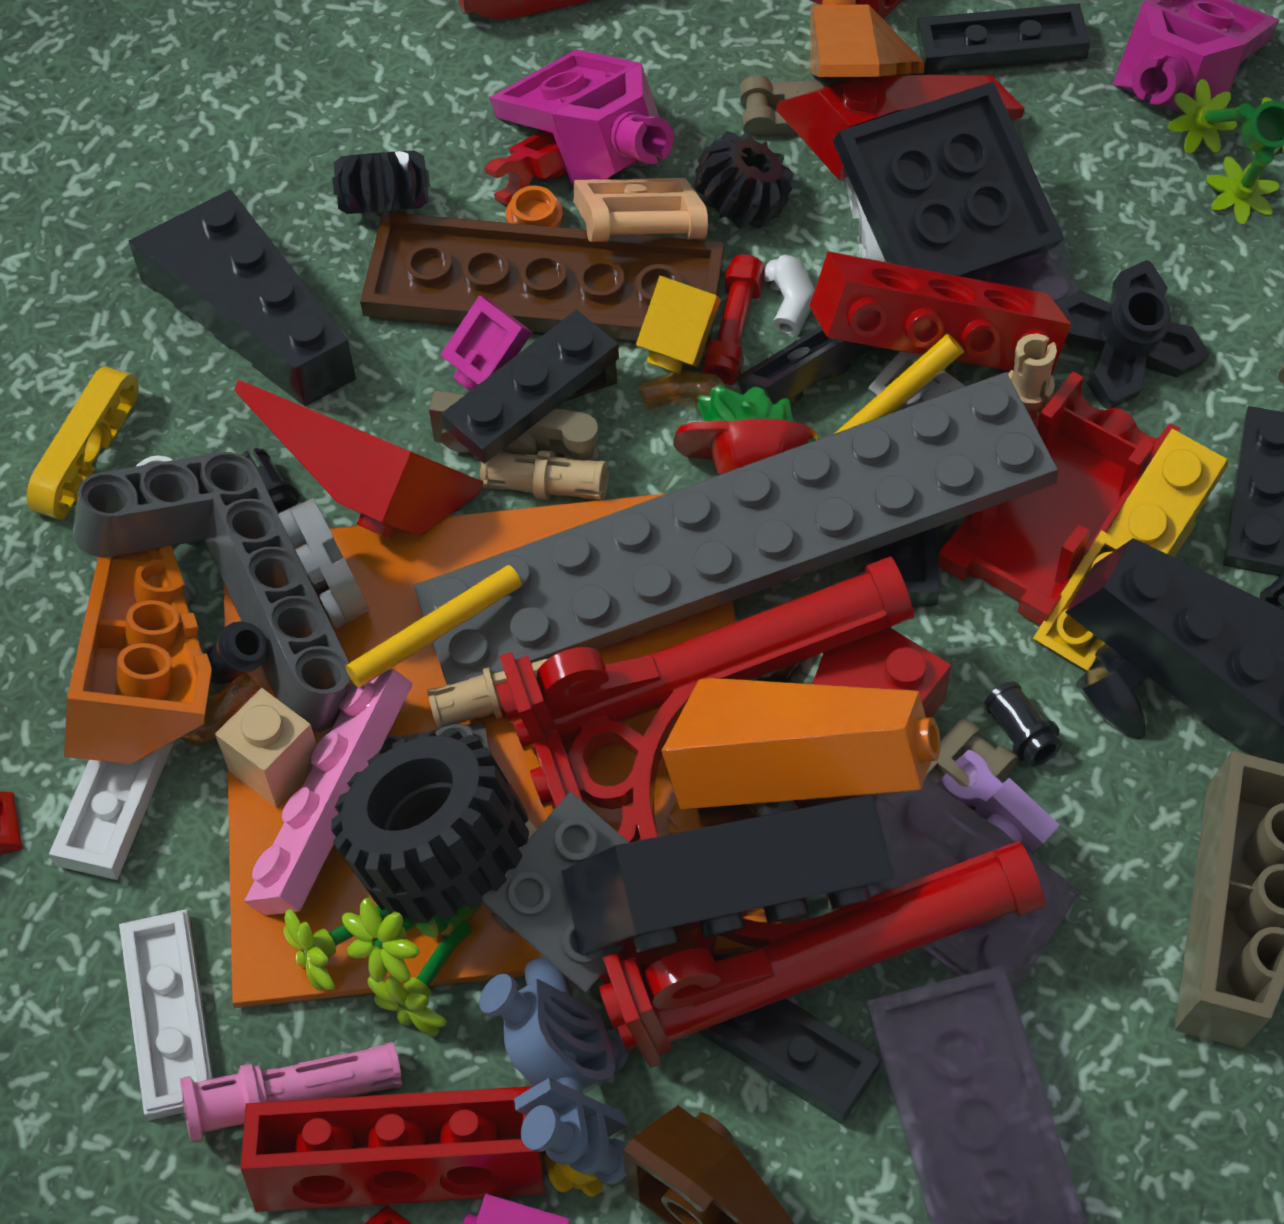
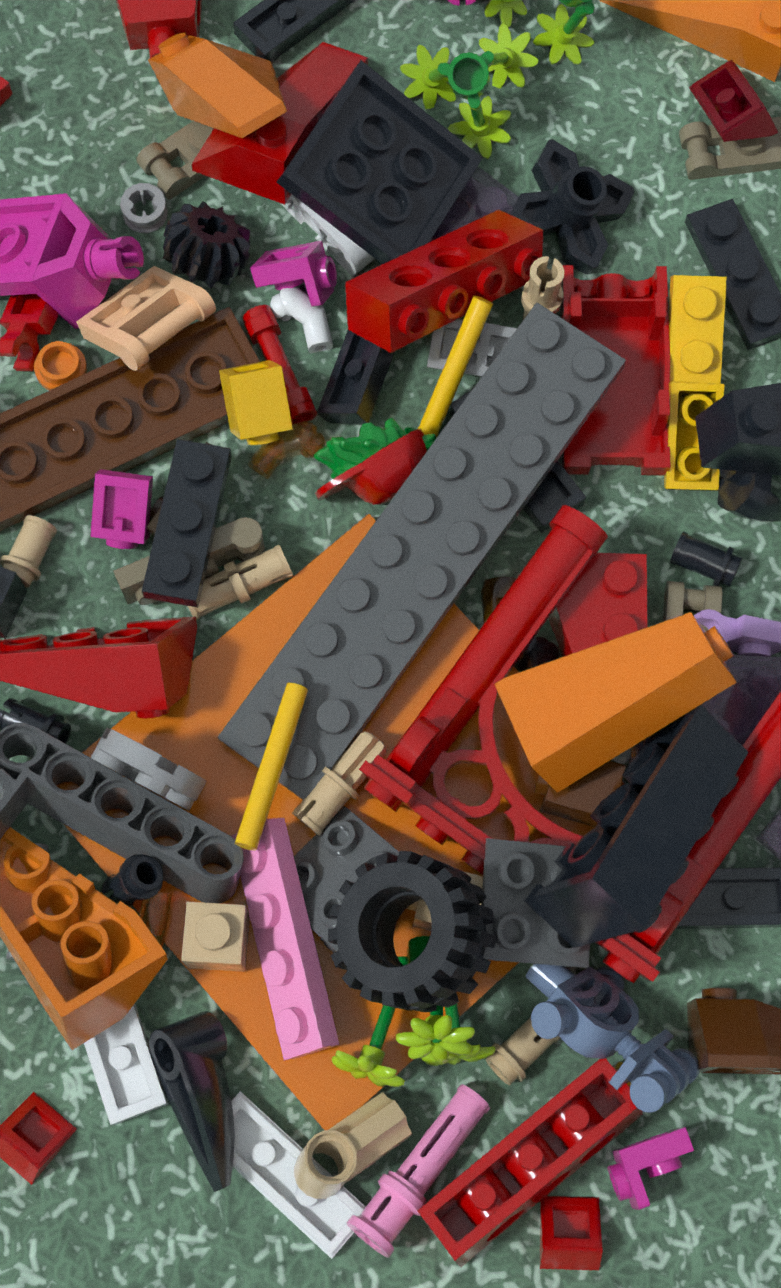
camera: 40 degrees left, 15 degrees up
(153, 869) = (194, 1079): none -> black piece
(245, 1018) = (353, 1145): none -> tan piece
(383, 343) = (29, 549): none -> tan pin
(470, 1051) = (518, 1053): none -> tan pin
(708, 114) = (144, 192): none -> light grey bush
(807, 243) = (295, 265): none -> dark pink bracket
(1094, 154) = (469, 80): none -> lime plant

